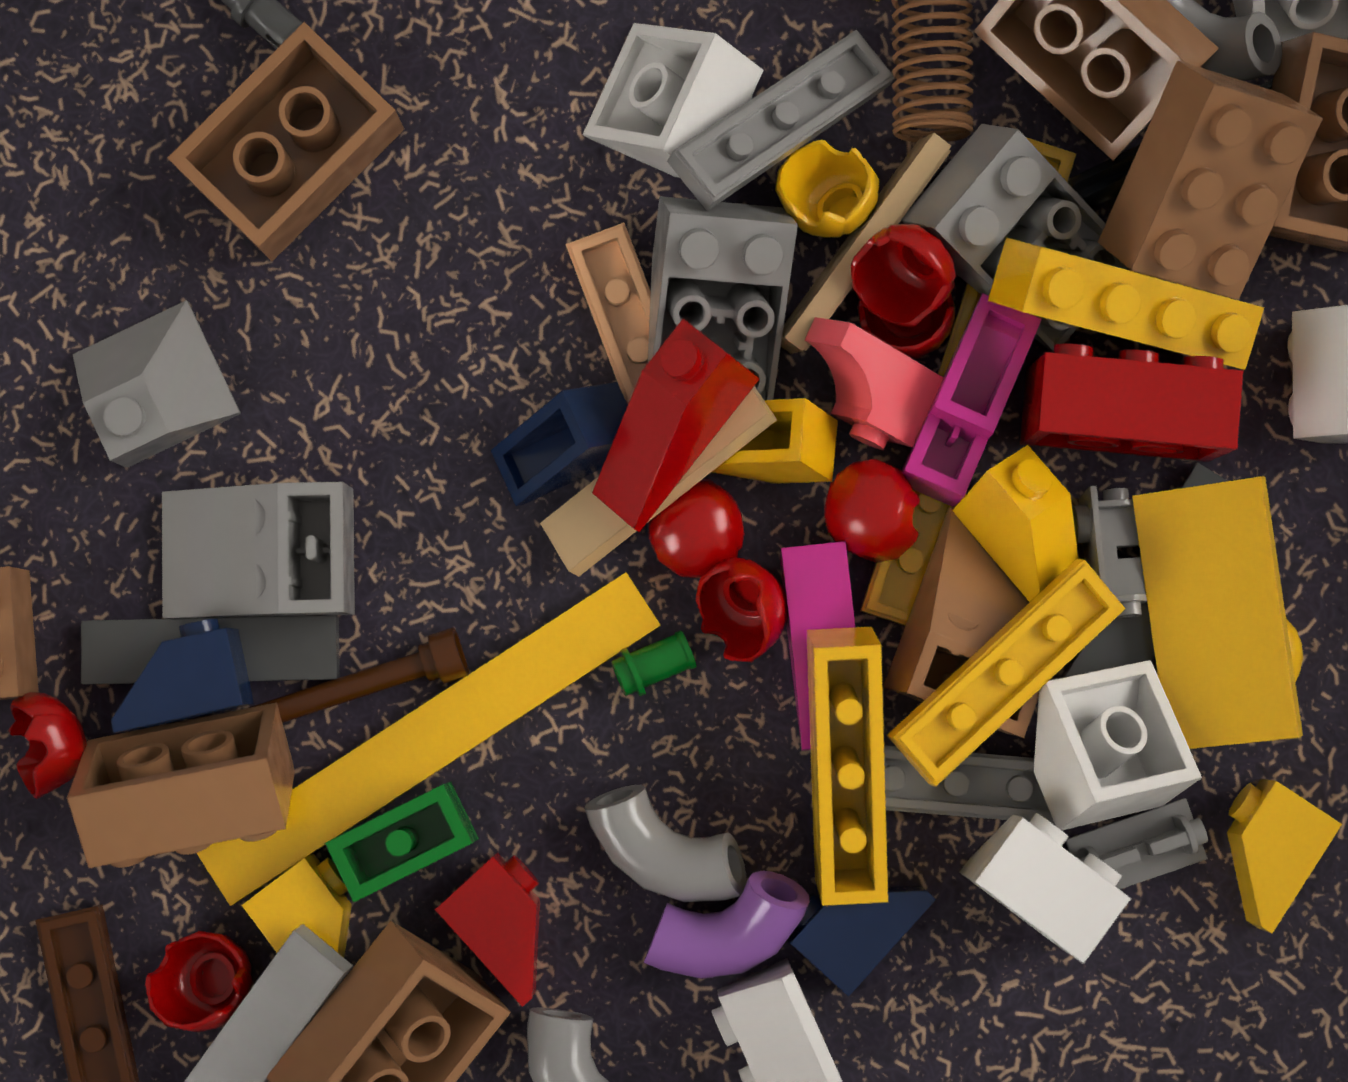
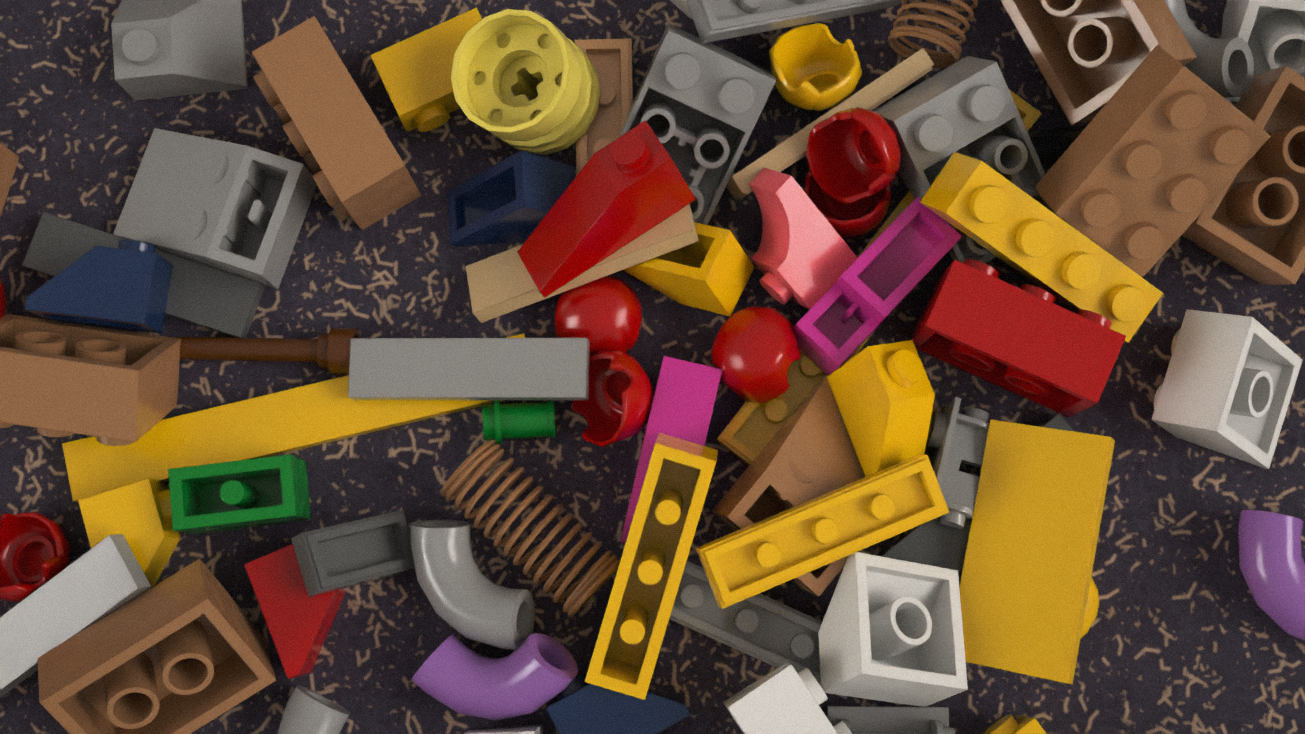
camera: 20 degrees right, 5 degrees down
(355, 428) = (333, 125): none -> medium nougat brick
(430, 332) = (420, 72): none -> yellow slope
(504, 314) = (503, 66): none -> light yellow wheel
(540, 857) = (354, 552): none -> dark grey tile
(586, 630) = (469, 369): none -> light grey tile
(636, 720) = (483, 460): none -> medium nougat piece

